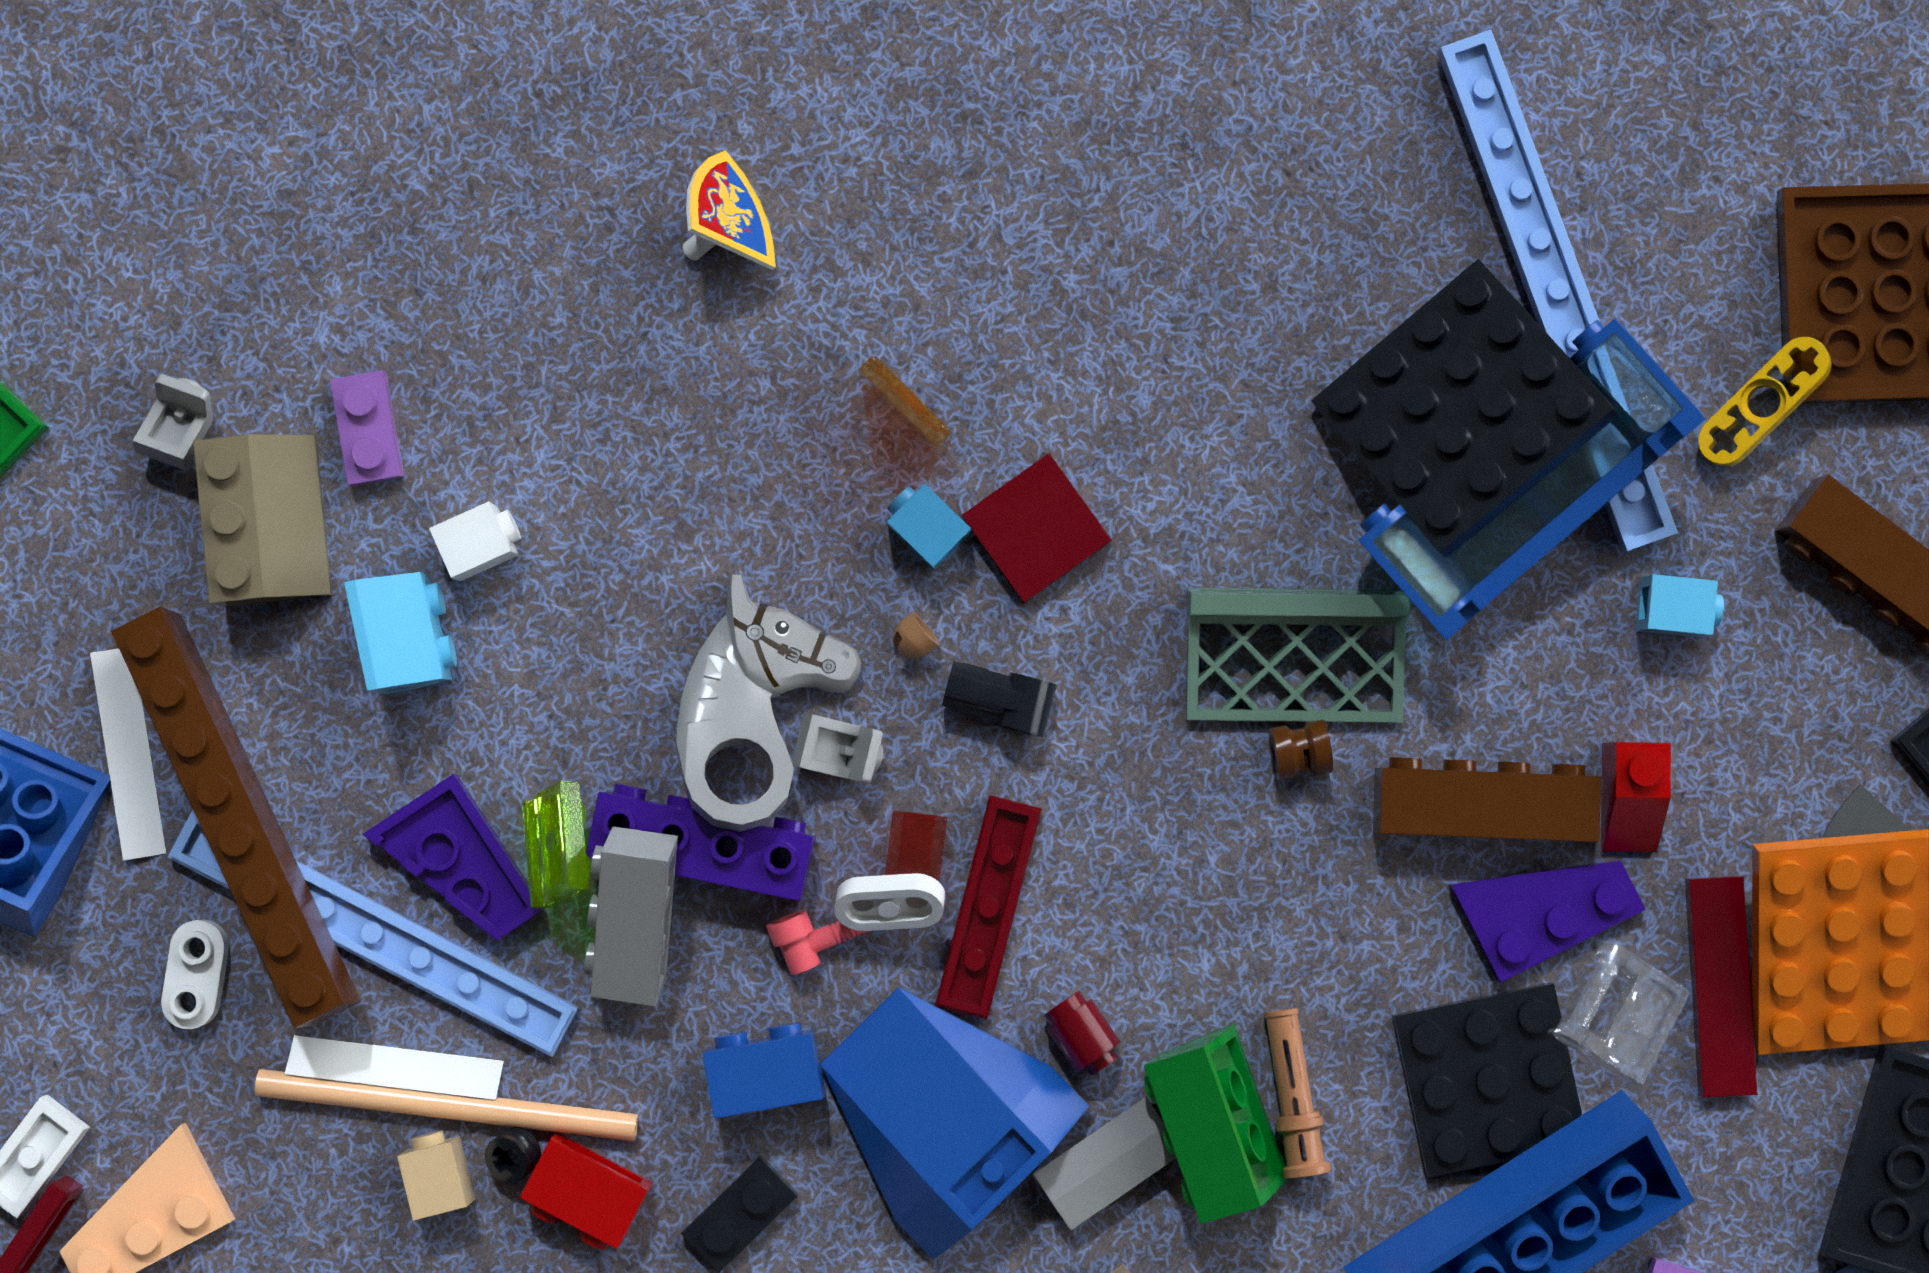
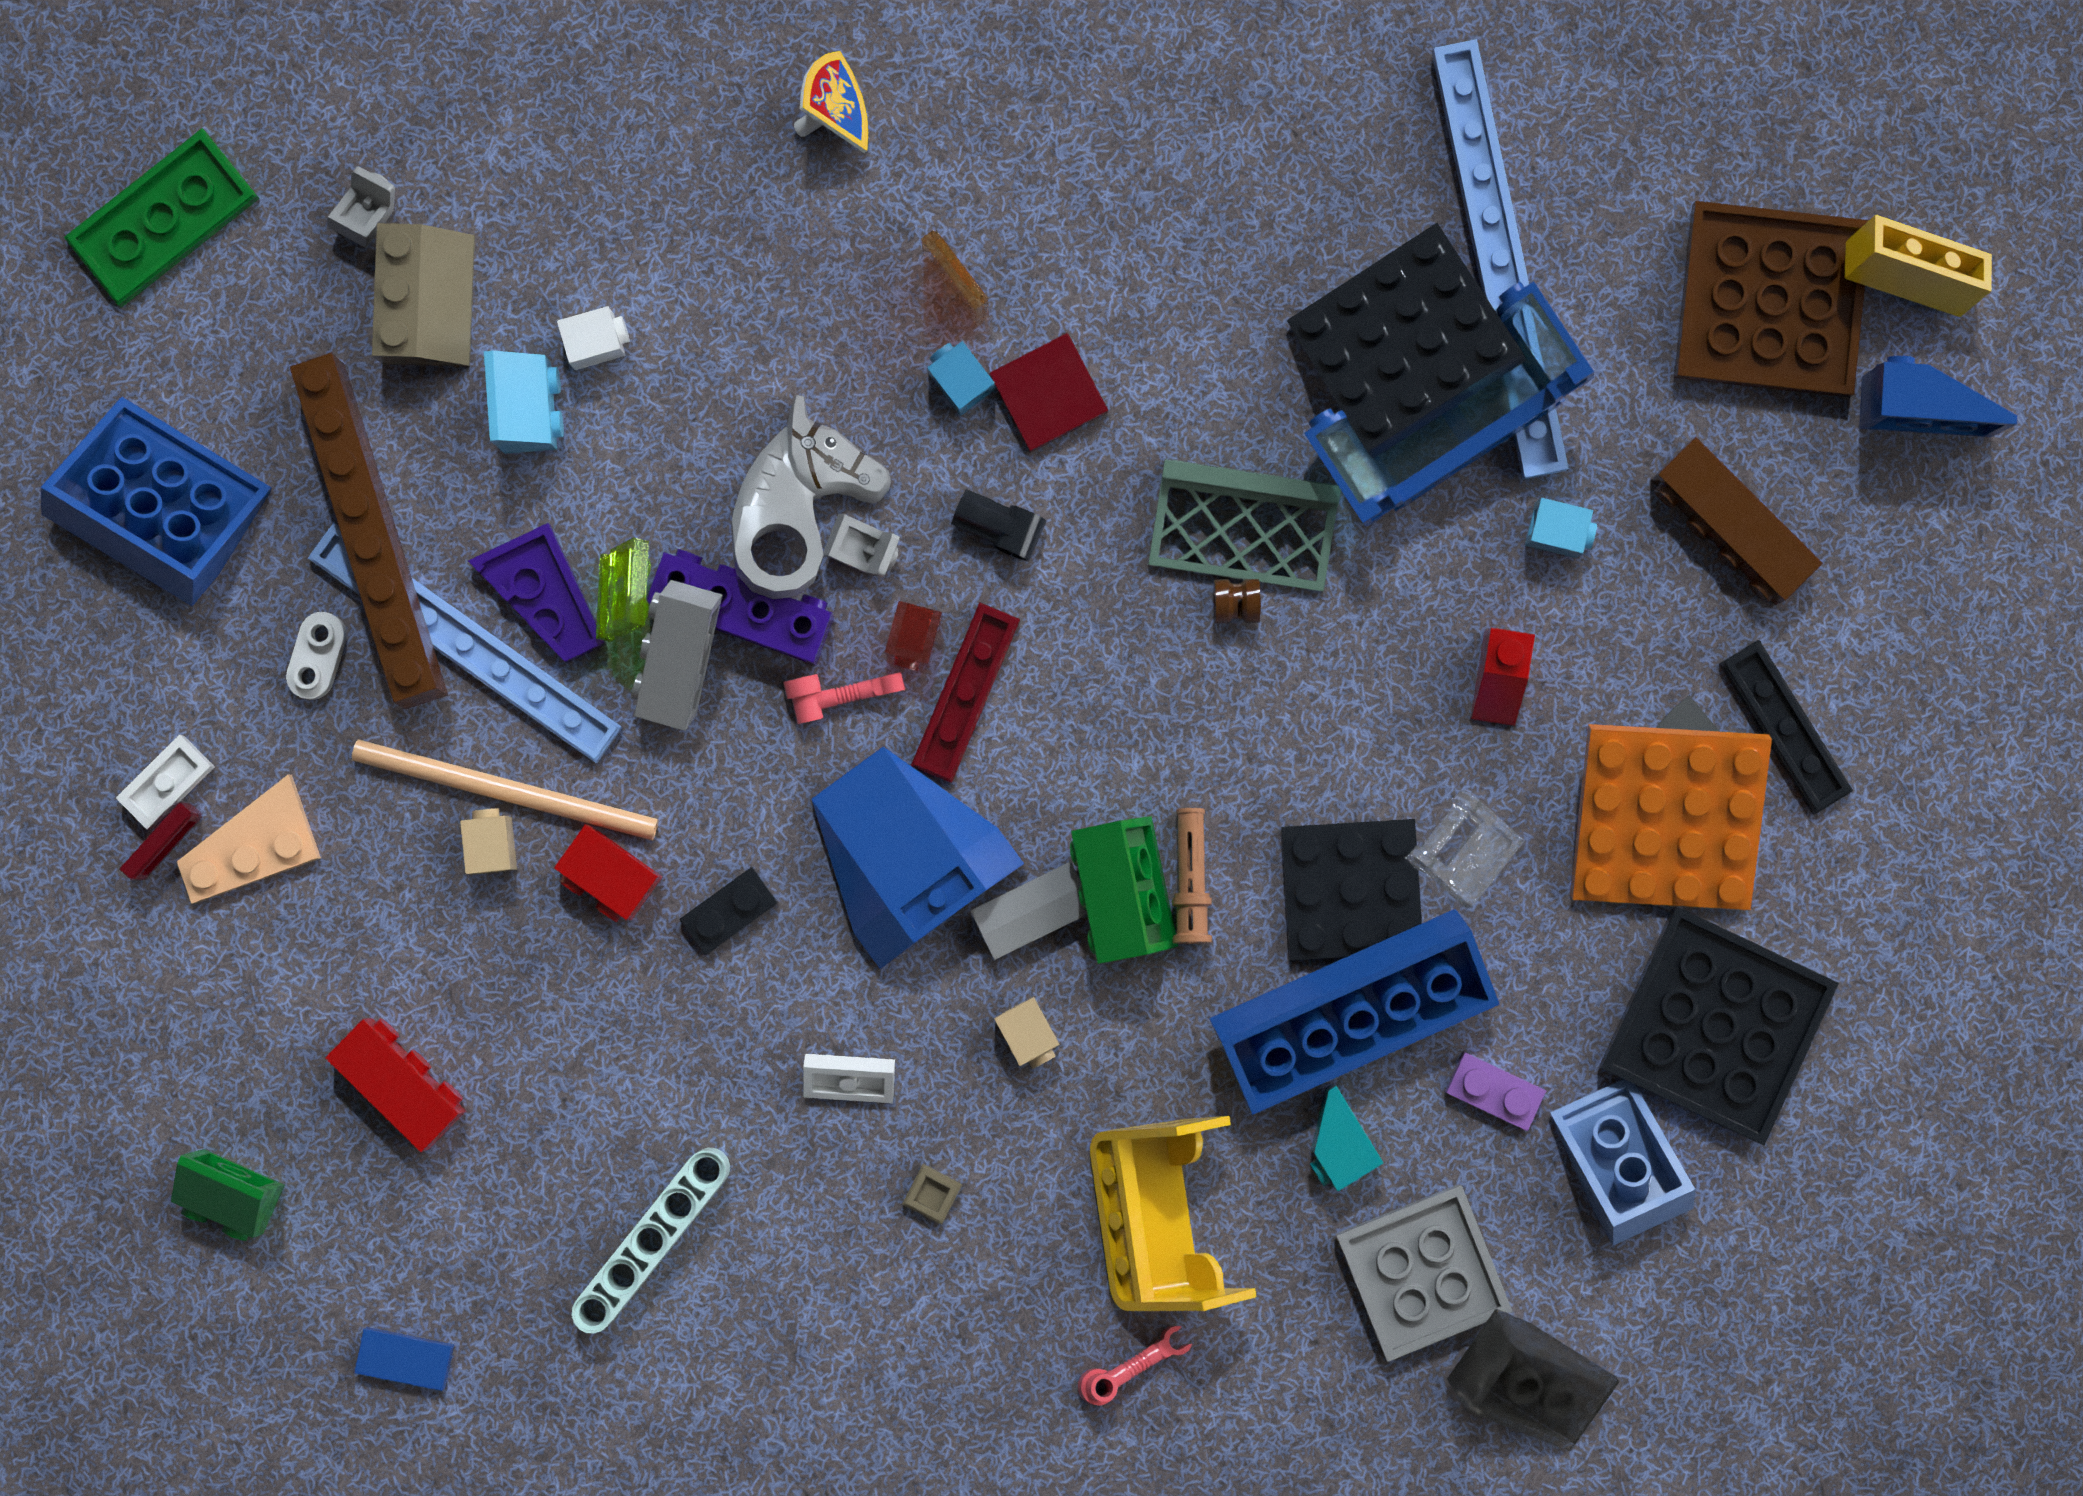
camera: 10 degrees right, 0 degrees up
(127, 757) = (286, 471): white sticker -> none
(367, 428) = (517, 235): medium lavender plate -> none
(394, 1067) = (466, 753): white sticker -> none
(499, 1161) = (541, 830): black bush -> none
(763, 1071) = (764, 796): blue brick -> none
(889, 902) = (888, 674): white plate -> none
(914, 637) = (936, 466): medium nougat hinge -> none
(1082, 1034) = (1026, 804): dark red brick -> none
(1487, 803) = (1380, 664): reddish brown brick -> none
(1544, 912) = (1414, 761): dark purple wing -> none
(1721, 986) = (1551, 841): dark red tile -> none
(1783, 361) = (1674, 342): yellow beam -> none

